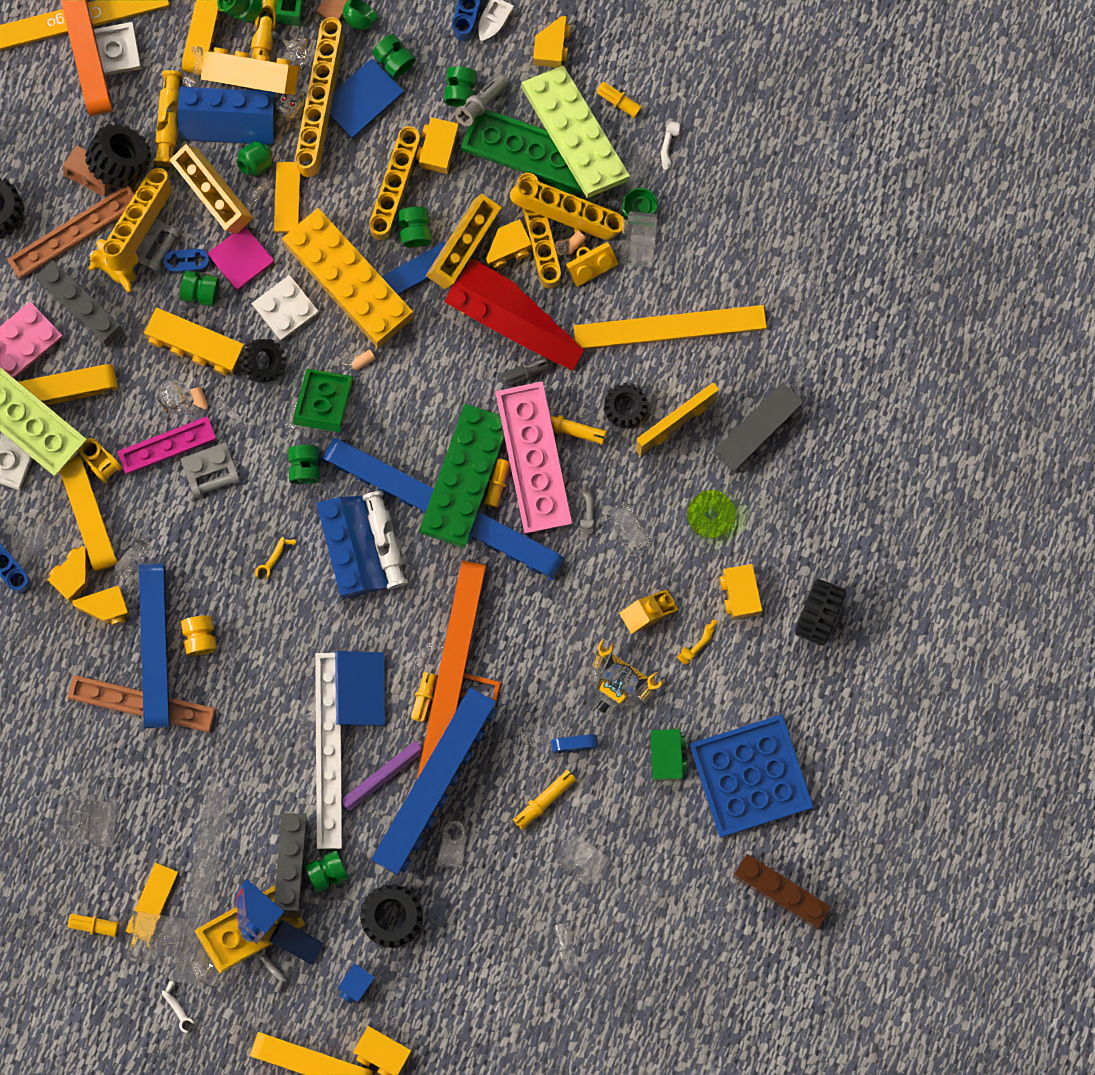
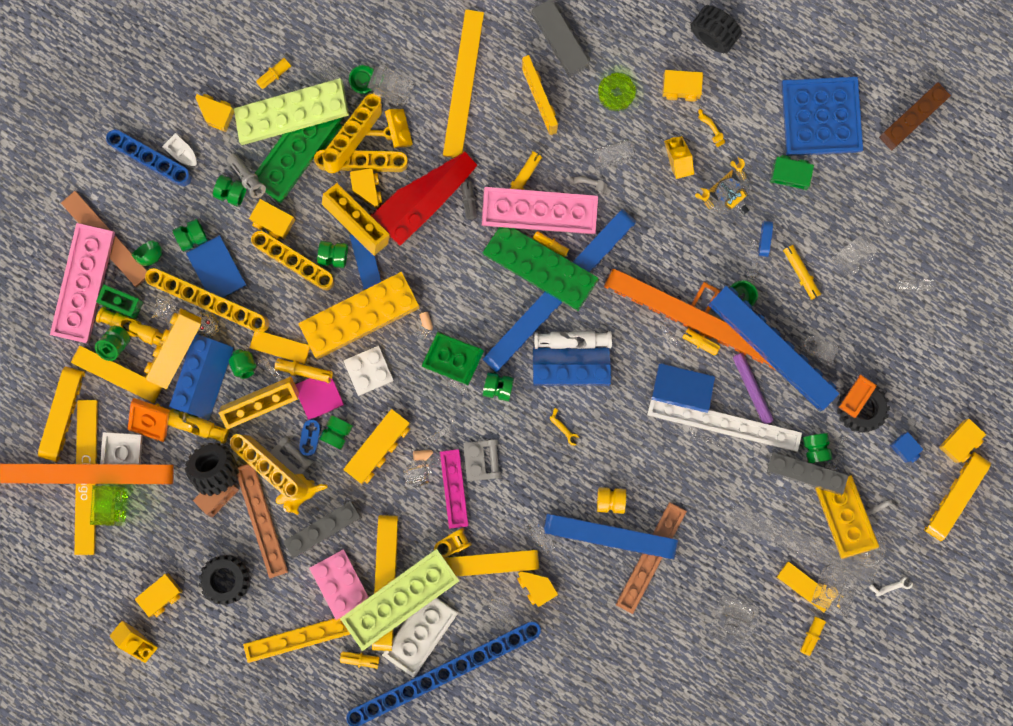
camera: 75 degrees left, 5 degrees up
(45, 50) = (108, 505): none -> clear neon green brick
(105, 606) = (569, 567): yellow slope -> none
(159, 69) = (148, 419): none -> orange tile
(192, 80) = (165, 397): clear piece -> none
(255, 912) = (842, 508): blue slope -> none
(265, 222) = (295, 368): none -> yellow pin
(275, 360) = (403, 405): black tyre -> none
(296, 942) = (865, 484): dark blue tile -> none
(400, 899) = (857, 396): none -> orange tile
(503, 726) = (749, 290): none -> green hair
(568, 246) = (379, 141): arm -> none
(627, 391) = (516, 143): black tyre -> none
(671, 130) = (308, 40): white piece -> none

